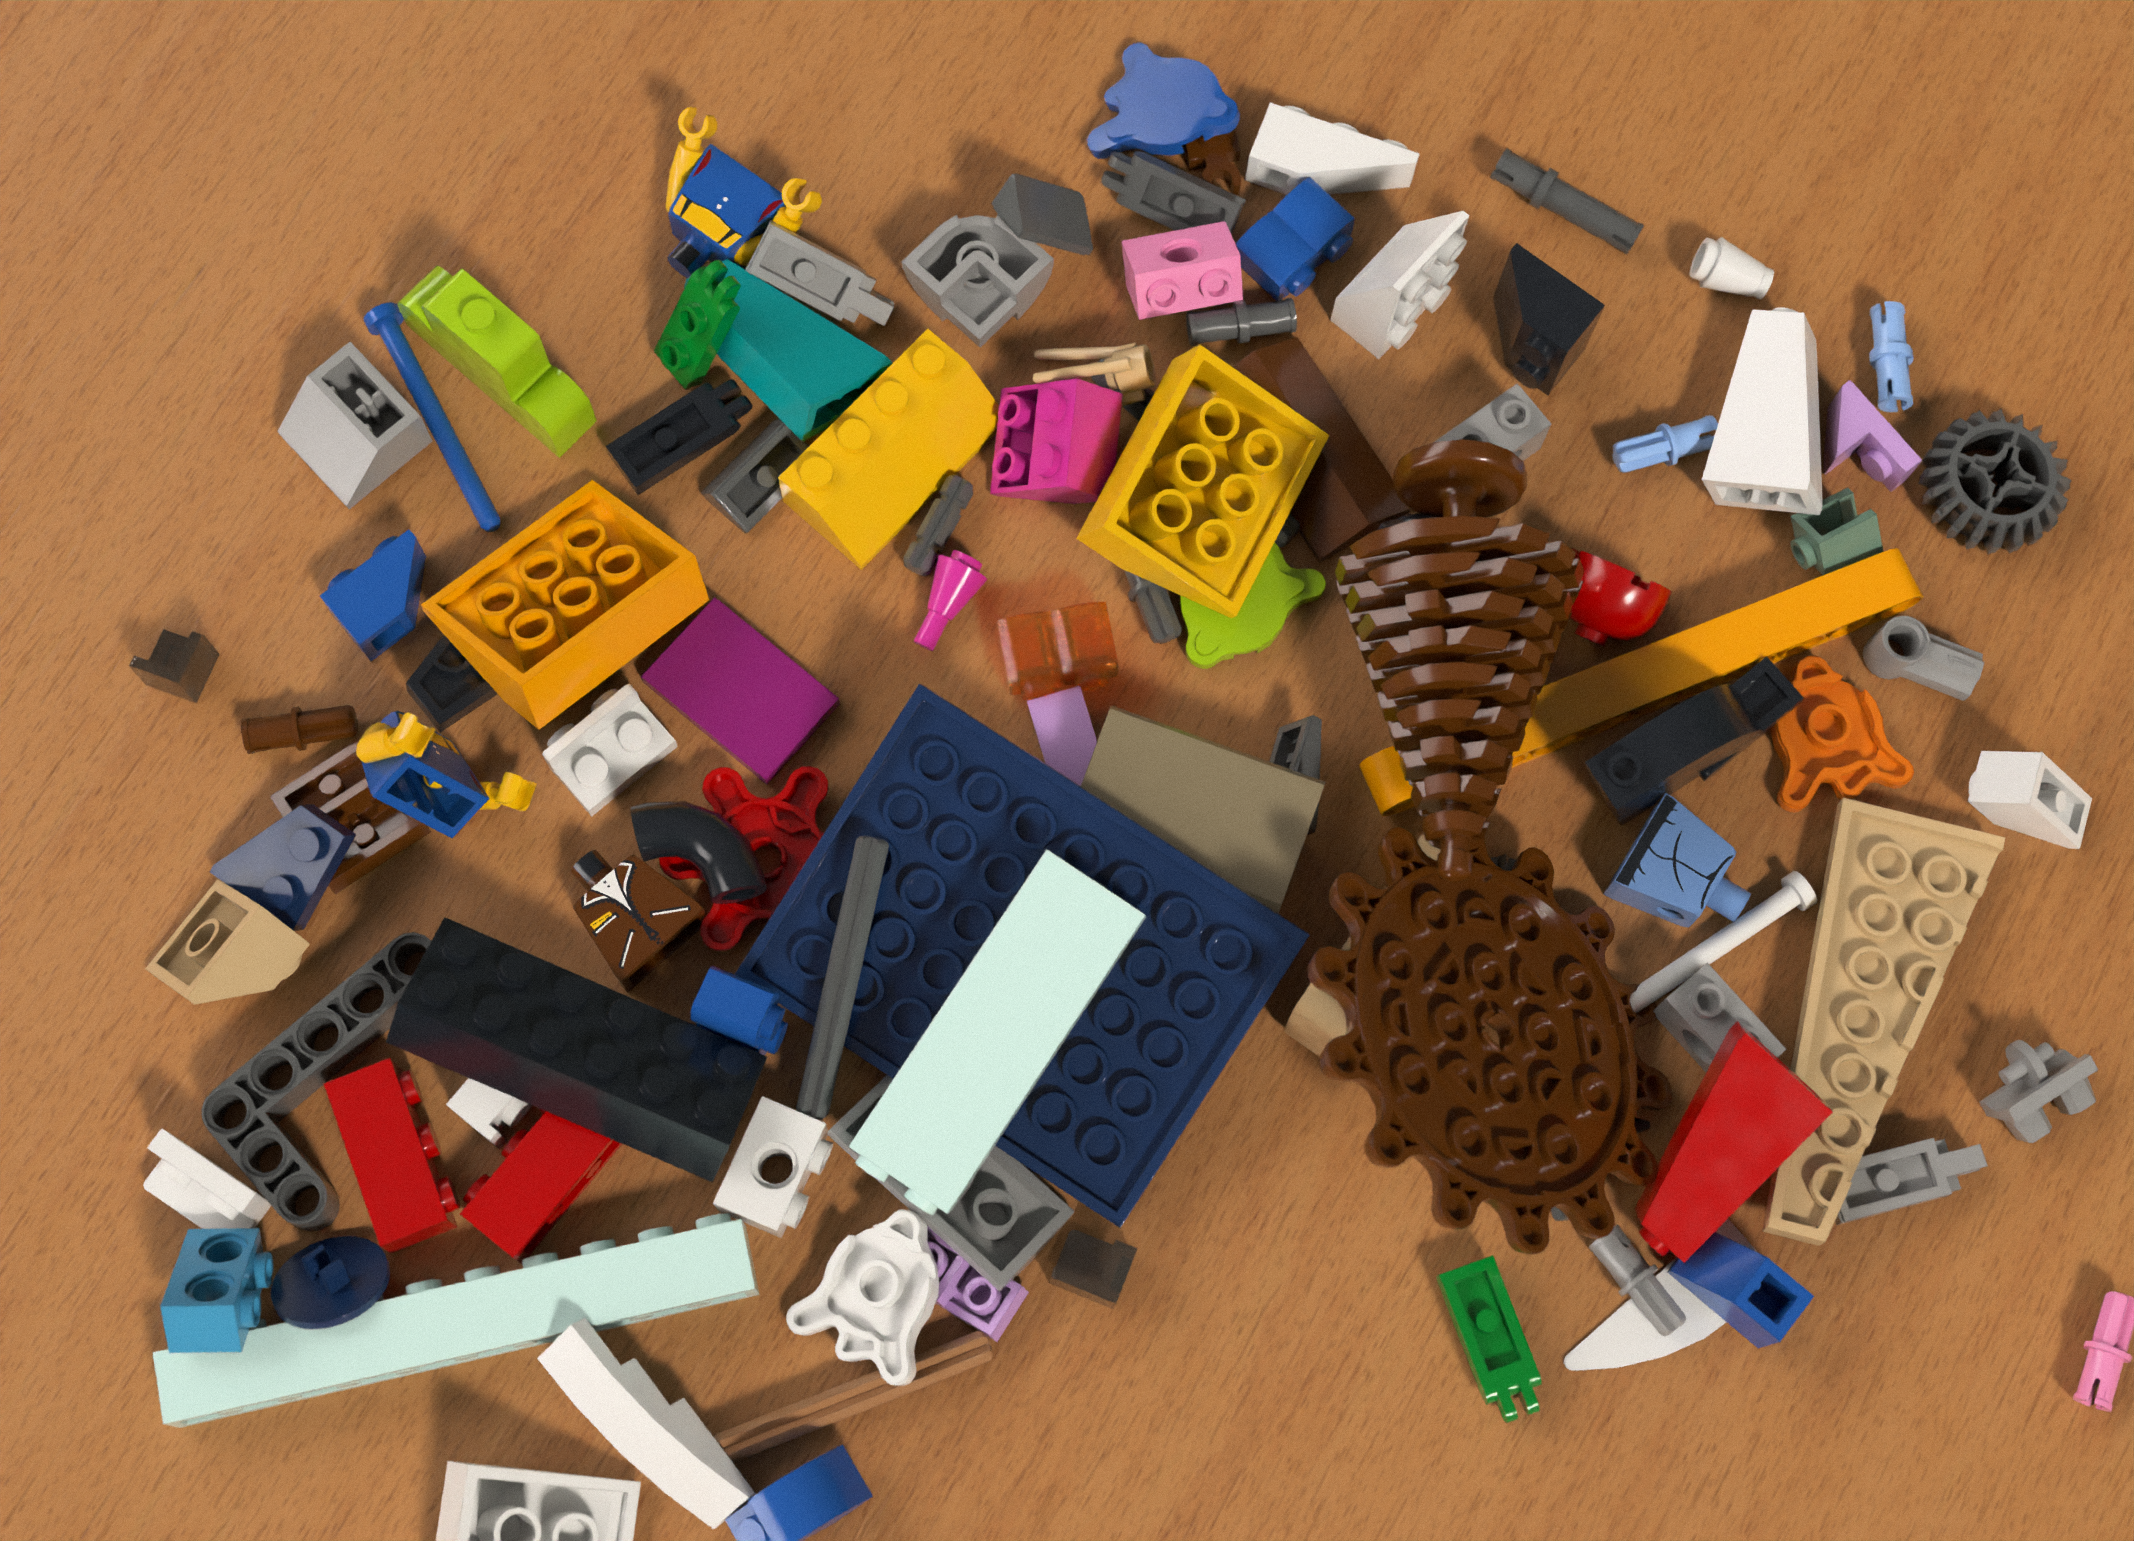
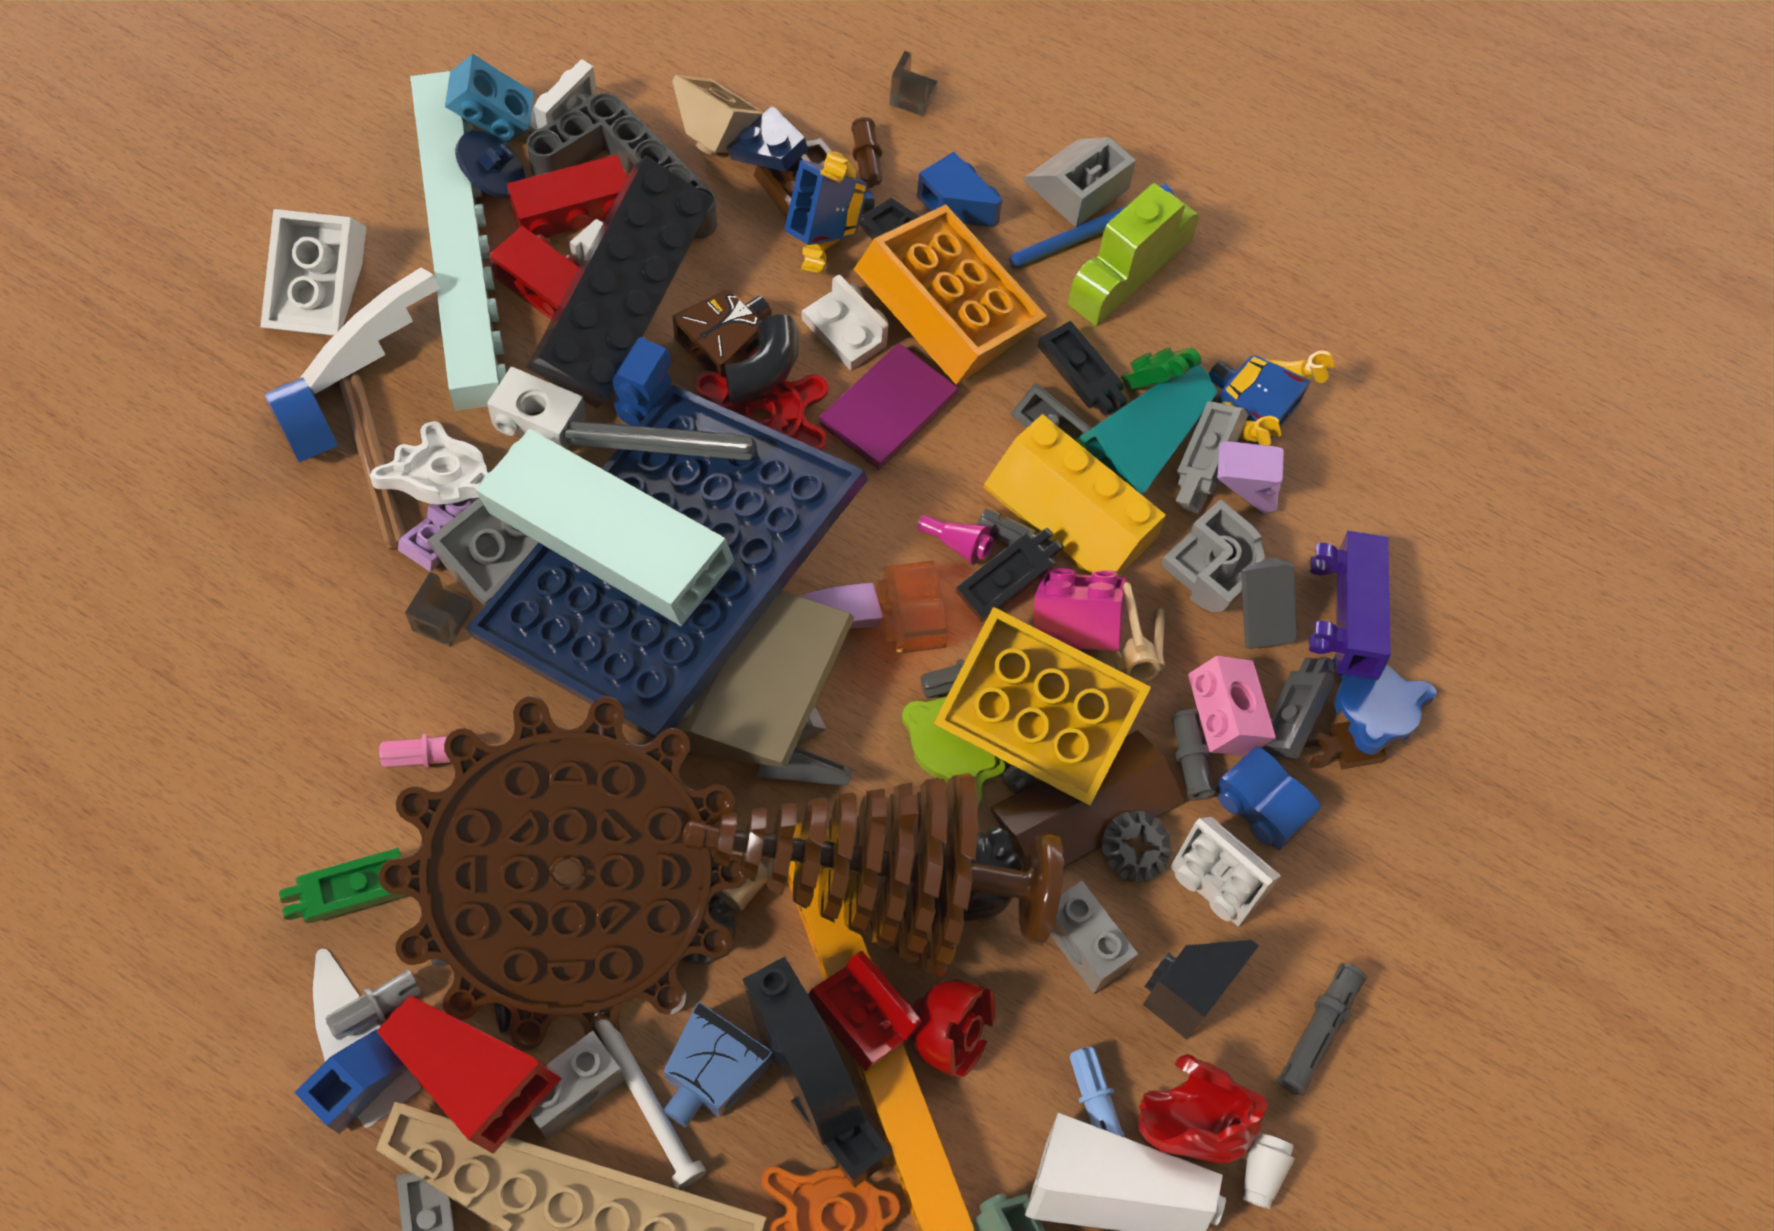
camera: 90 degrees right, 10 degrees down
(855, 219) = (1252, 472): none -> lavender slope
(1005, 529) = (1009, 573): none -> black hinge
(1034, 111) = (1362, 604): none -> dark purple brick
(1298, 1261) = (413, 752): none -> bright pink axle
(1334, 155) = (1348, 803): white slope -> none
(1346, 398) = (1122, 858): none -> dark grey gear
(1619, 684) = (864, 1011): none -> red bracket
(1688, 328) = (1204, 1116): none -> red hair

